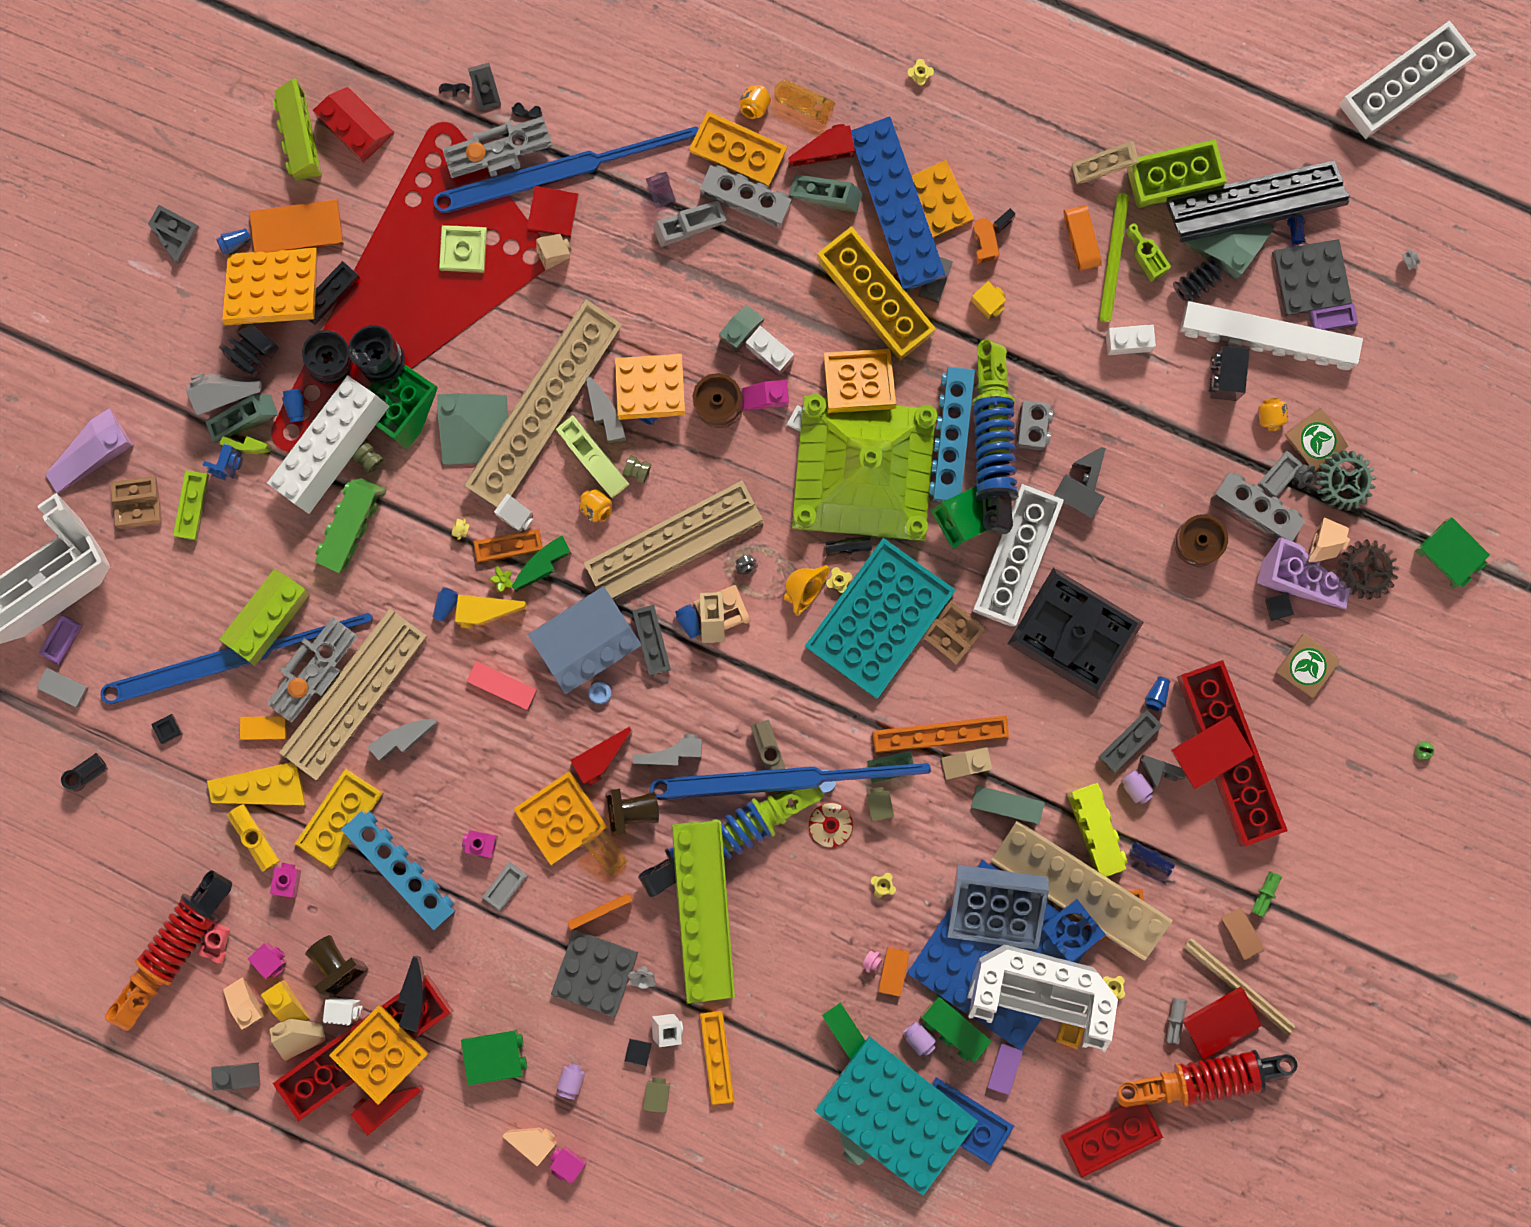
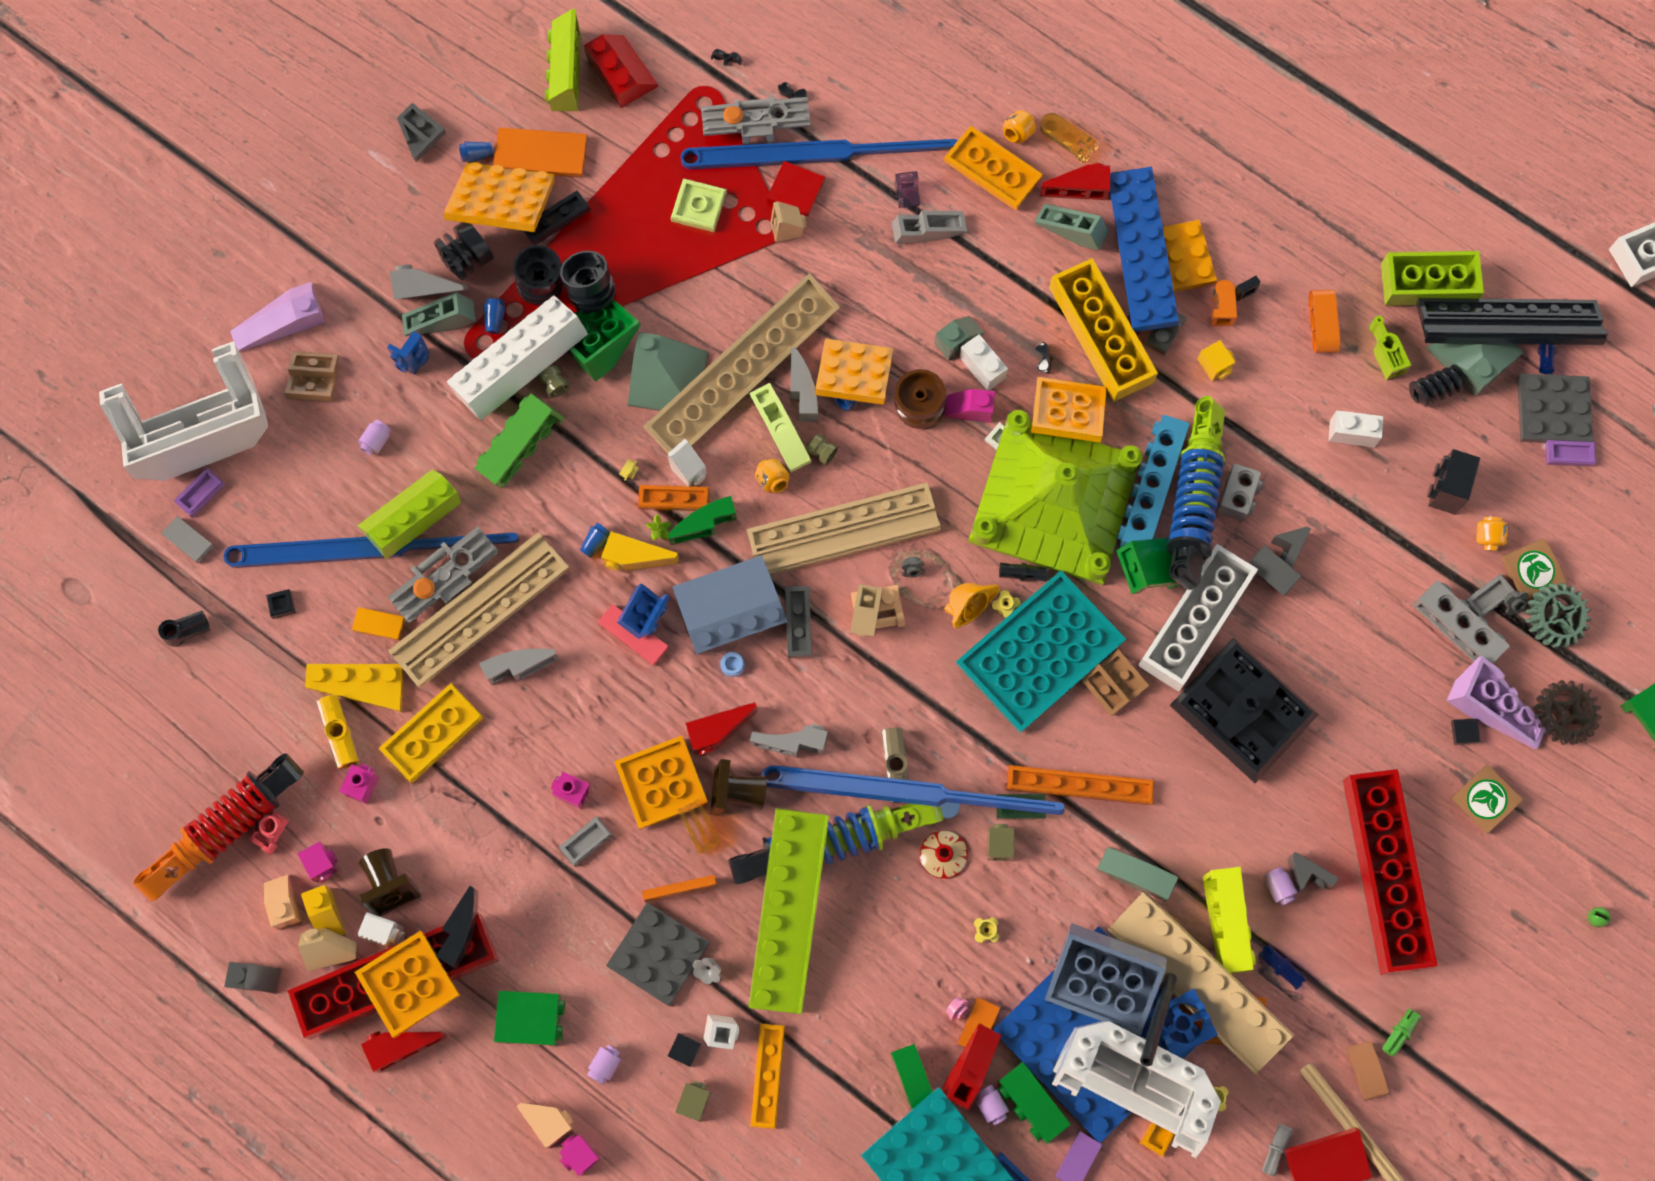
camera: 15 degrees right, 10 degrees down
(191, 505) = (365, 389): lime plate -> none
(212, 551) = (374, 437): none -> lavender brick
(250, 445) = (440, 345): lime slope -> none
(354, 831) = (445, 745): dark azure brick -> none
(484, 86) = (756, 59): dark grey slope -> none
(506, 664) = (643, 611): none -> blue bracket
(688, 620) = (841, 610): blue cone -> none
(732, 198) = (977, 212): light grey brick -> none
(828, 338) = (1045, 363): none -> black piece
(895, 1011) = (971, 1067): none -> red slope
(920, 78) = (1188, 139): light yellow plate -> none
(966, 763) = (1102, 820): tan slope -> none
(1050, 937) = (1158, 1020): none -> black piece
(1105, 163) = (1361, 252): tan tile -> none
(1114, 257) = (1352, 347): lime axle -> none
(1130, 741) = (1281, 836): dark grey plate -> none
(1158, 694) = (1319, 795): blue cone -> none
(1211, 532) = (1394, 643): reddish brown wheel -> none
(1212, 752) = (1369, 862): red tile -> none
(1271, 335) = (1504, 455): white brick -> none
(1328, 541) = (1531, 672): light nougat slope -> none

